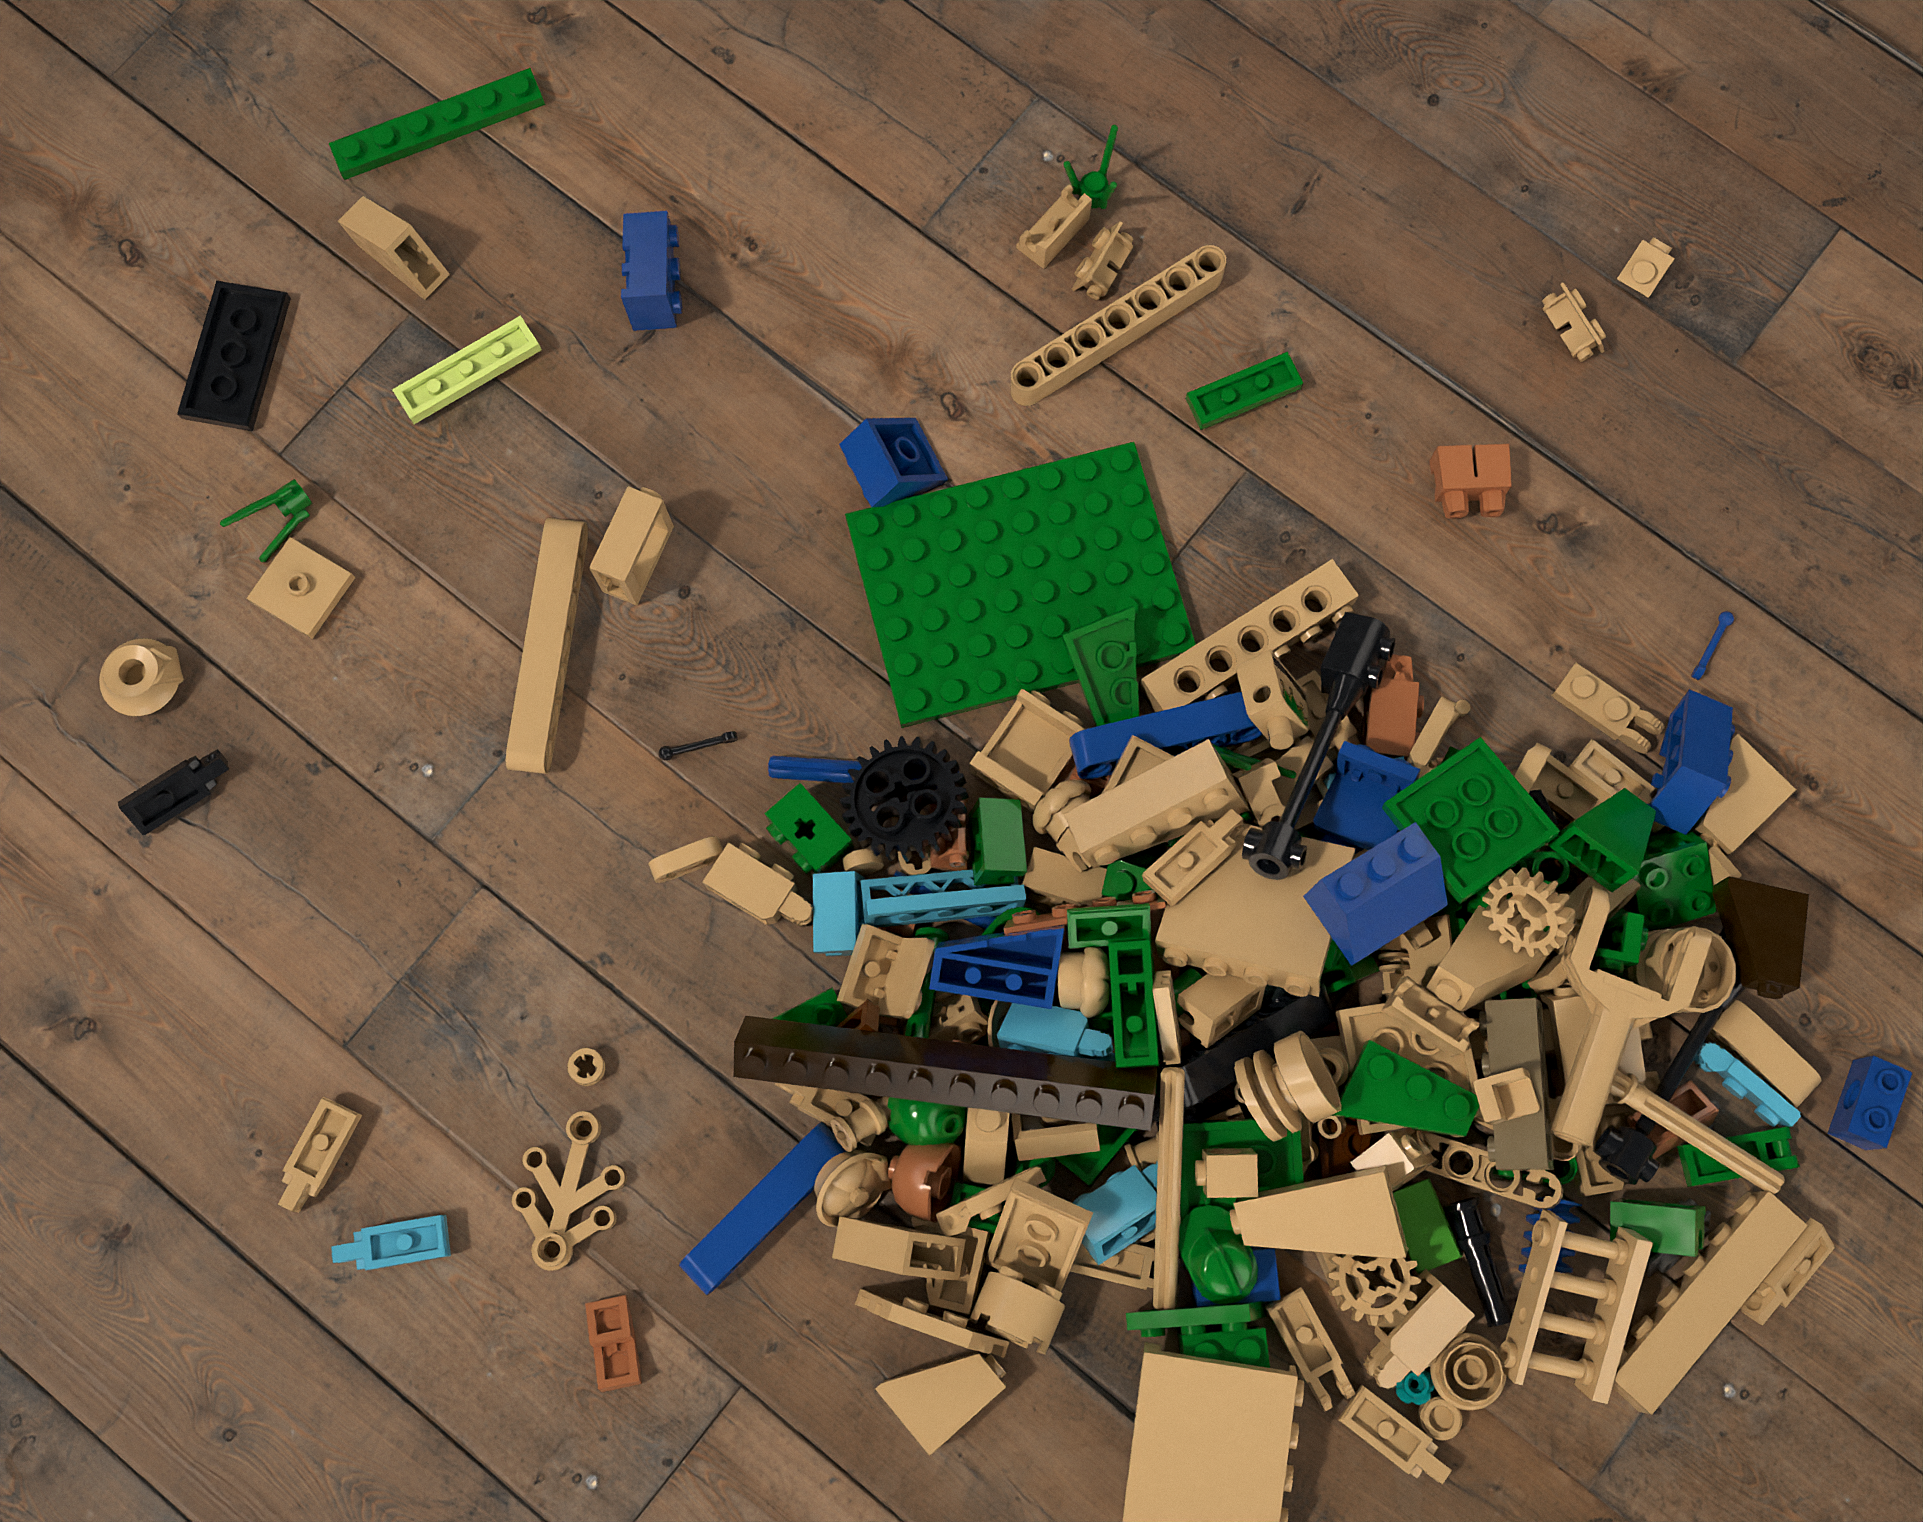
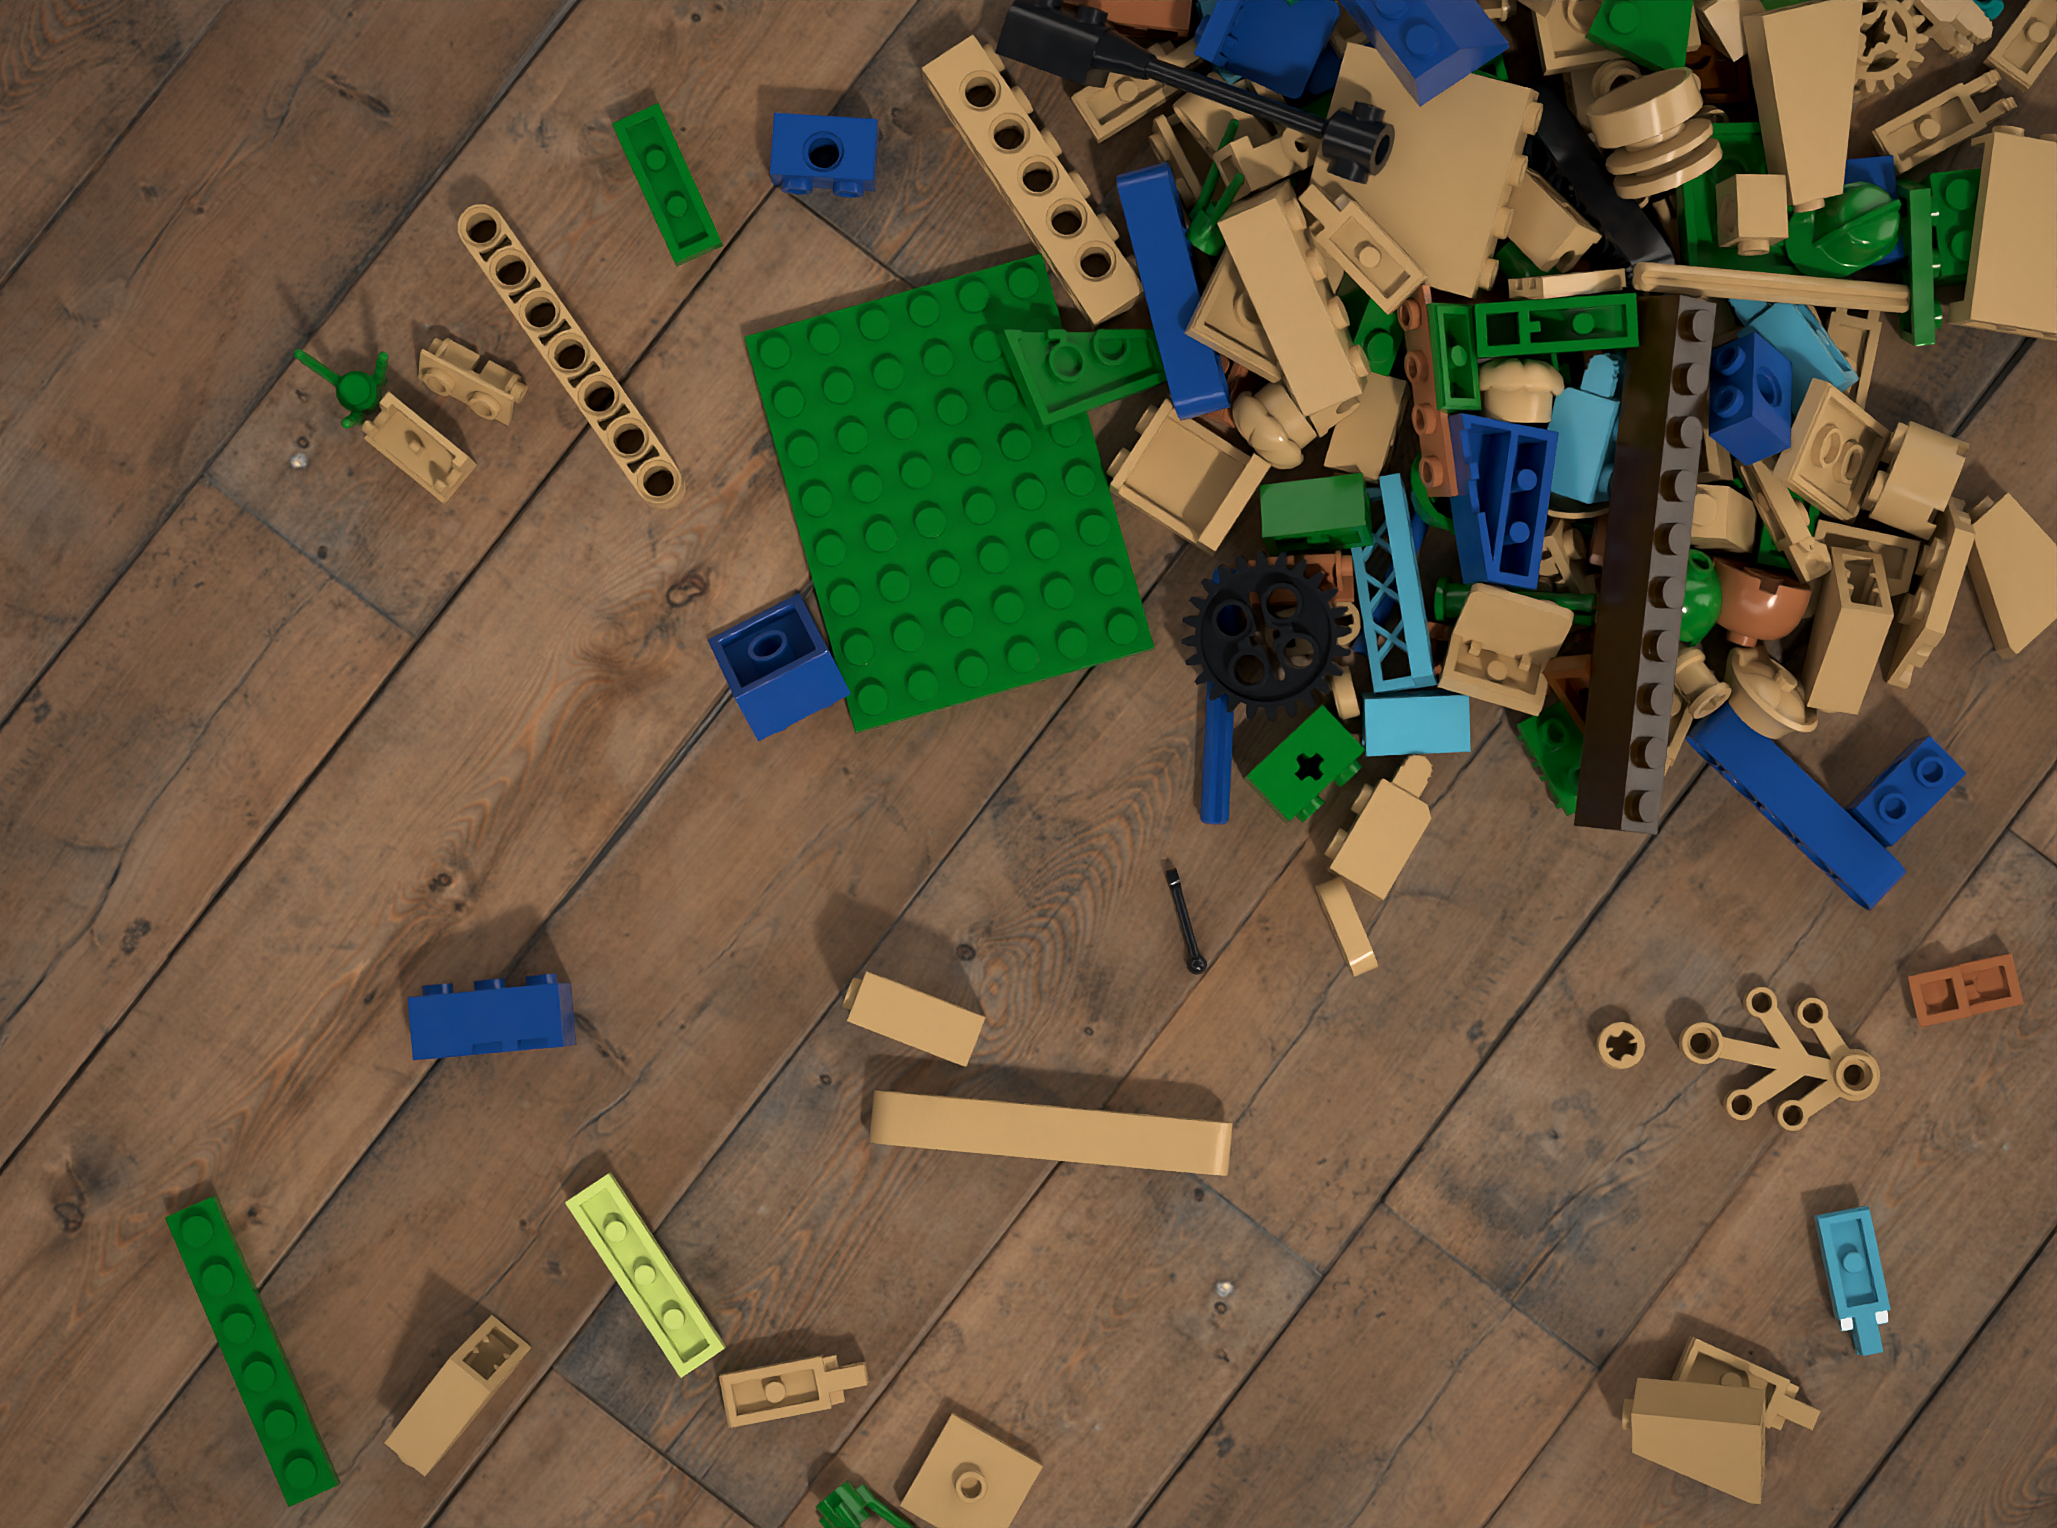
camera: 95 degrees left, 10 degrees up
(282, 1116) = (1701, 1432): none -> tan slope
(379, 464) = (788, 1388): none -> tan hinge
(769, 1295) = (1905, 790): none -> blue brick
(1077, 1164) = (1750, 399): none -> blue brick
(1277, 714) = (1134, 146): tan torso -> none
(1278, 477) = (800, 135): none -> blue brick

